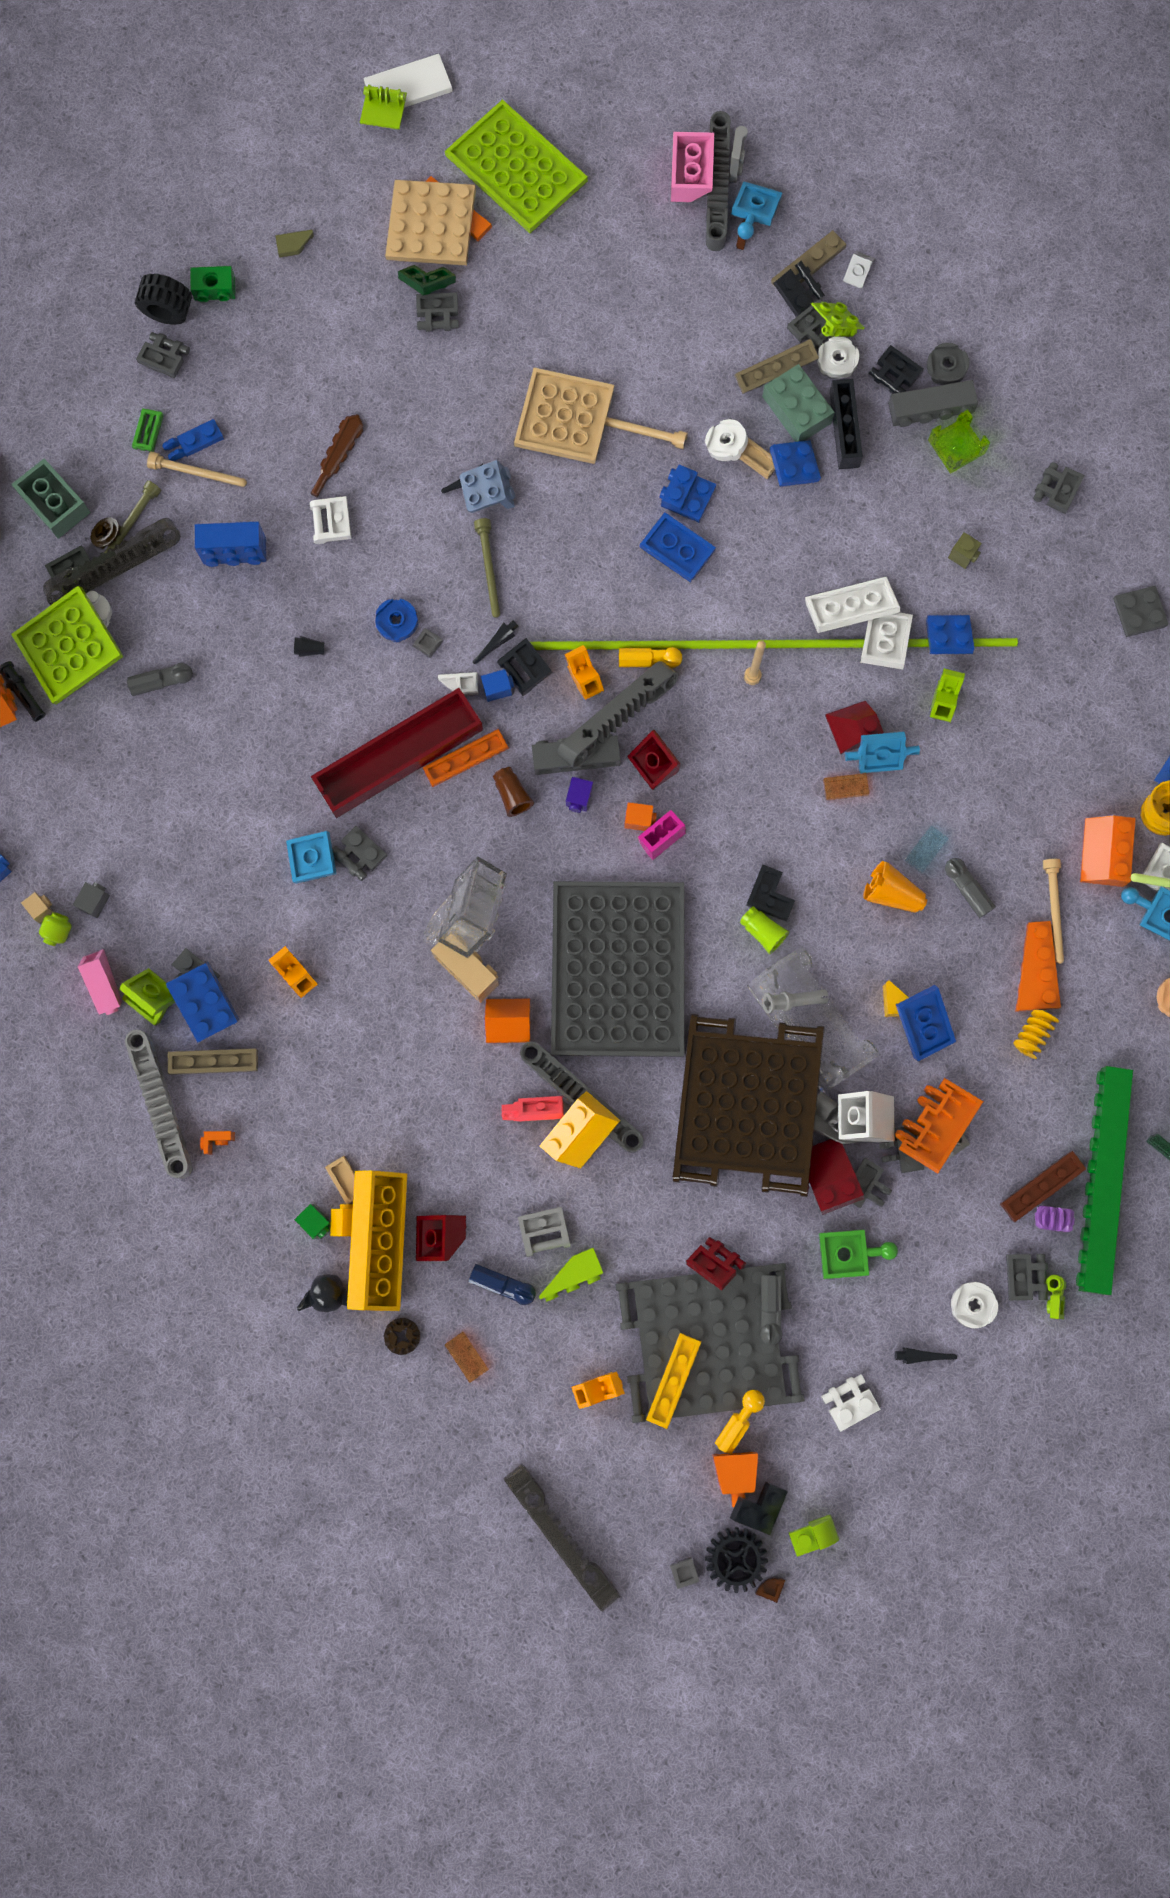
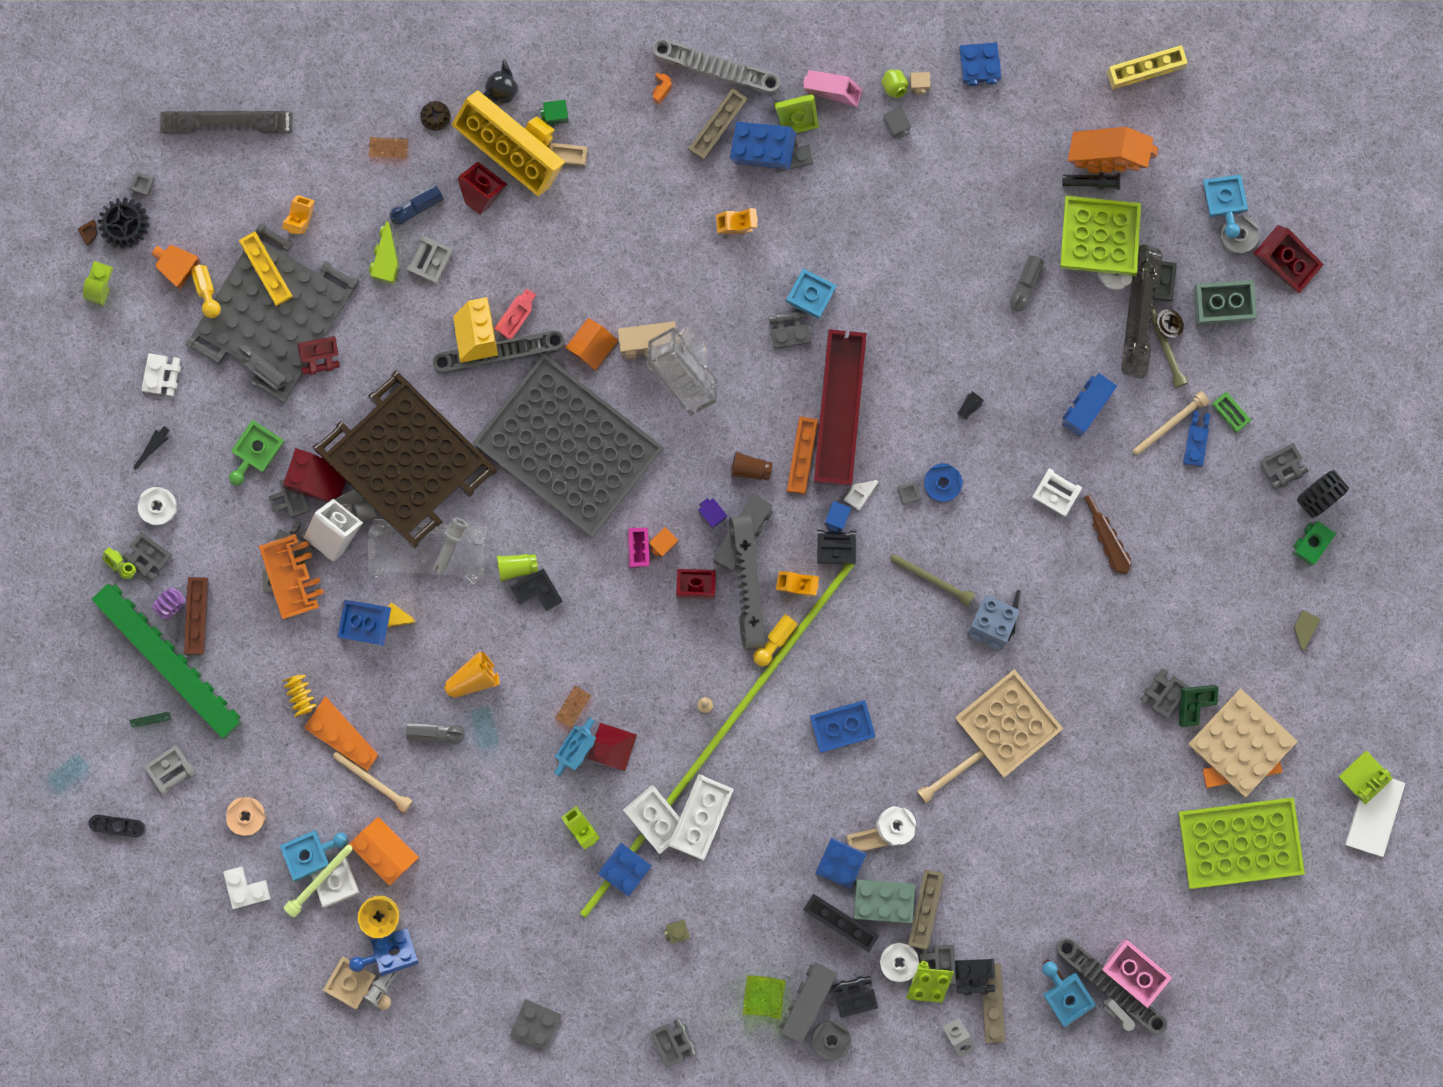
camera: 125 degrees right, 5 degrees up
(503, 634) = (873, 550): black piece -> none
(687, 493) = (878, 766): blue plate -> none
(762, 1514) = (137, 262): black plate -> none

